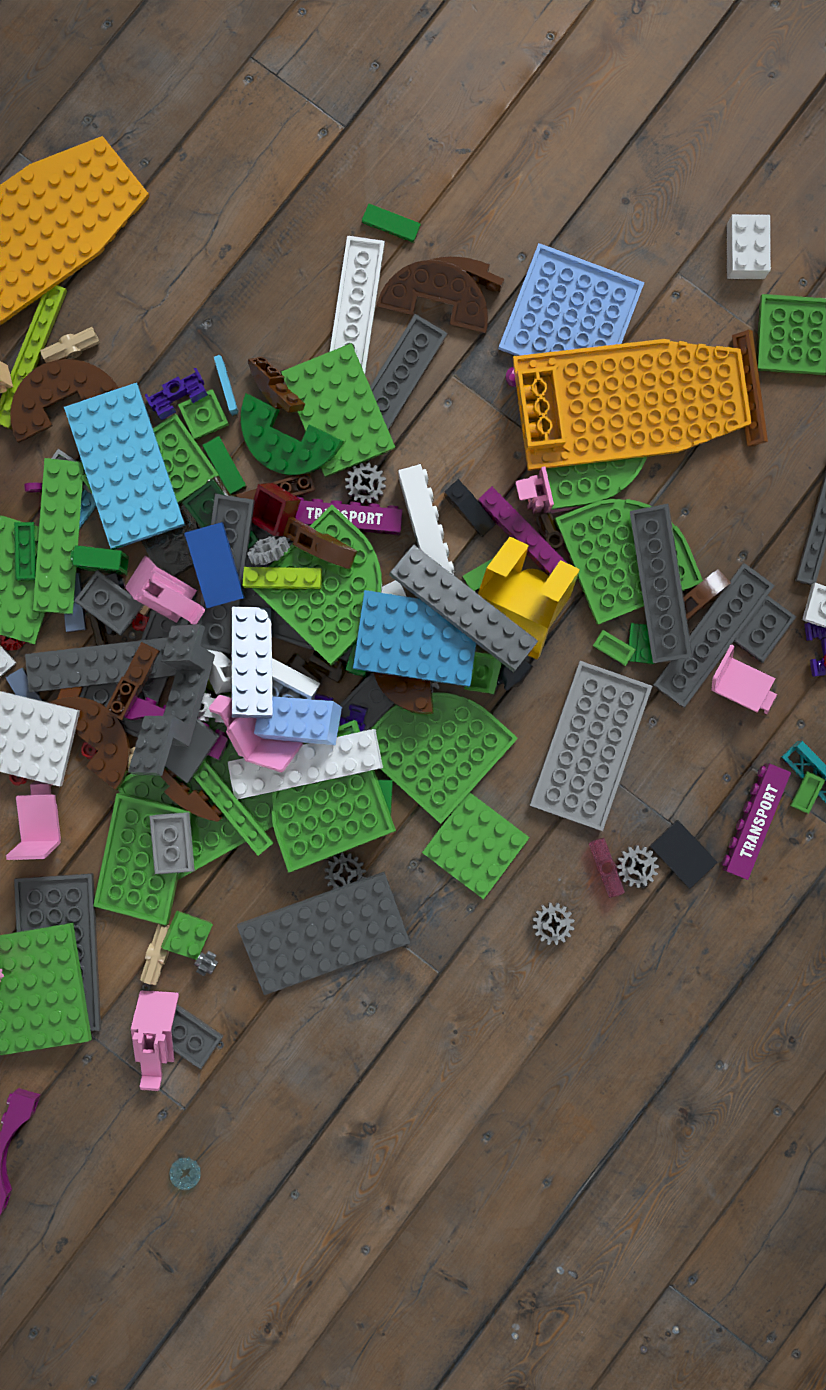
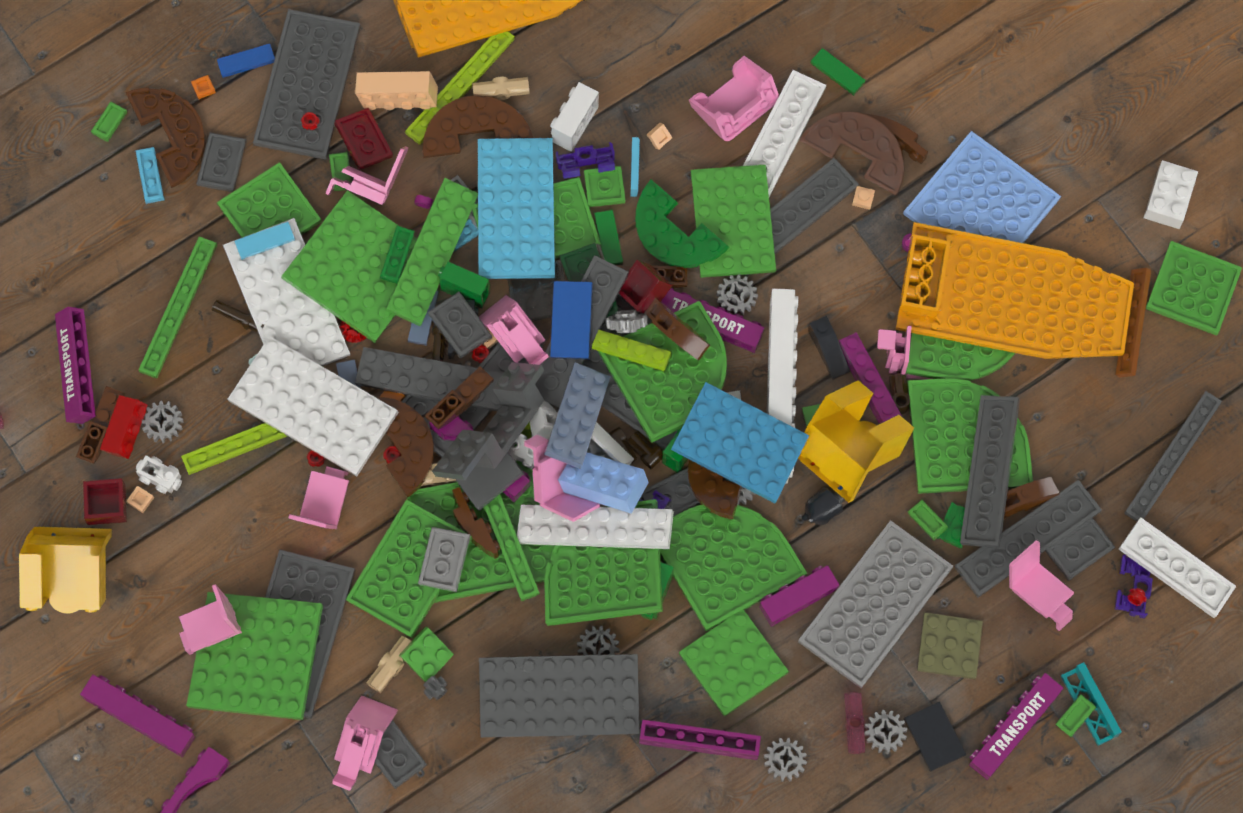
camera: 20 degrees right, 15 degrees down
(150, 353) = (574, 116): none -> white brick
(239, 345) = (659, 136): none -> light nougat plate
(271, 385) = (678, 180): reddish brown slope -> none
(304, 285) = (738, 101): none -> bright pink windscreen
(455, 345) = (863, 197): none -> light nougat plate
(463, 608) = (793, 428): plate -> none
(468, 933) = (700, 739): none -> magenta brick
(484, 673) = (793, 500): bright green plate -> none
(517, 761) = (799, 595): none -> magenta brick
(671, 762) = (949, 645): none -> olive plate

